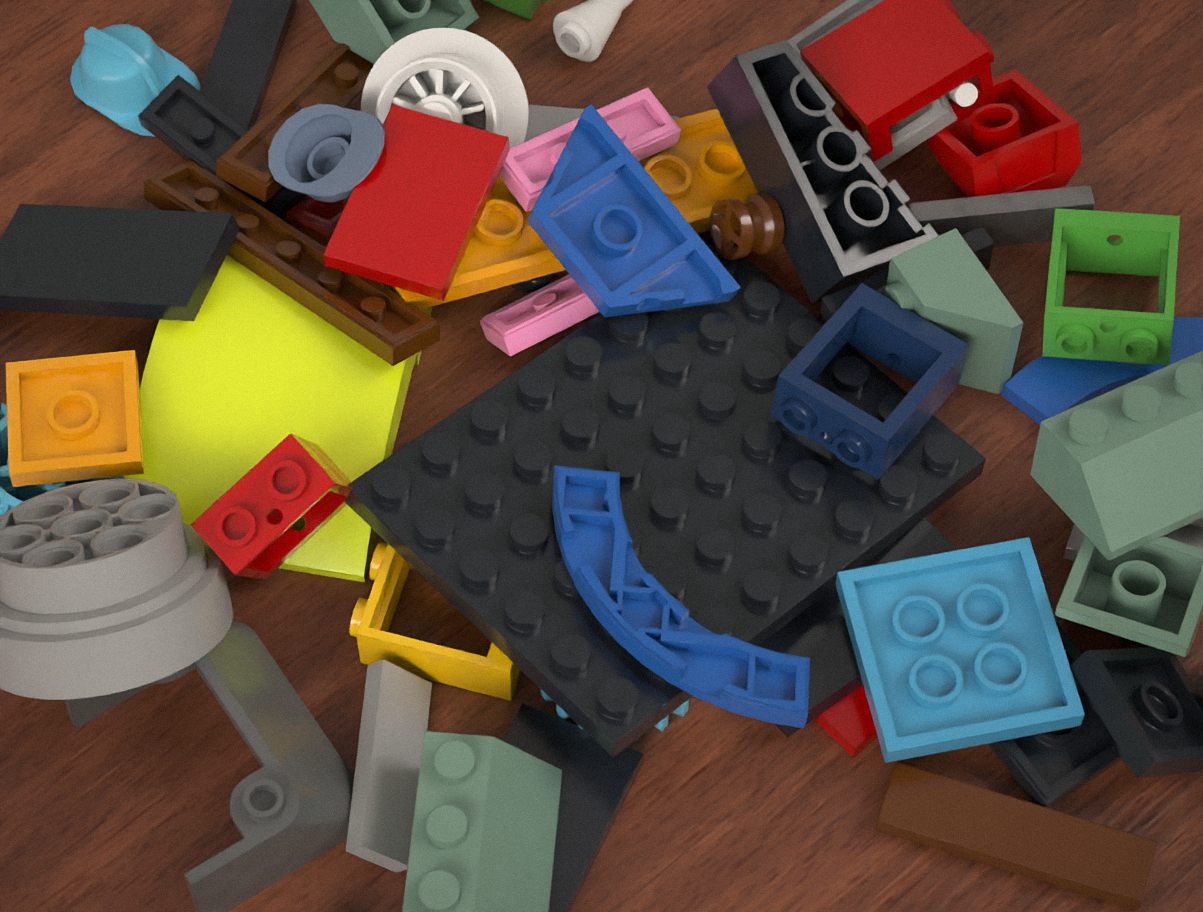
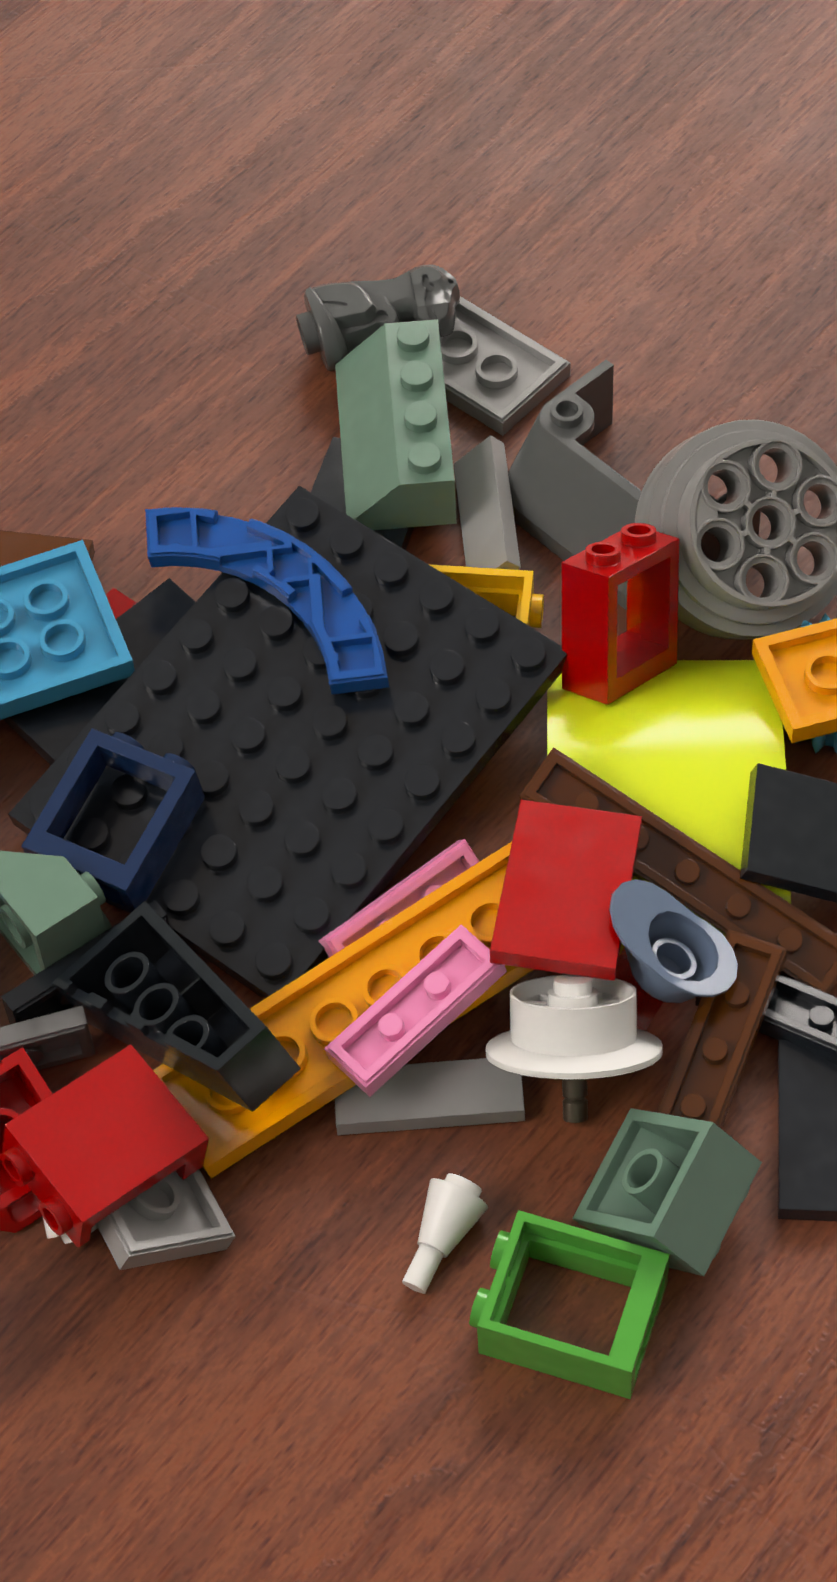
camera: 175 degrees right, 5 degrees down
(622, 231) = (368, 918): blue wing -> none
(746, 226) = (247, 970): reddish brown wheel -> none

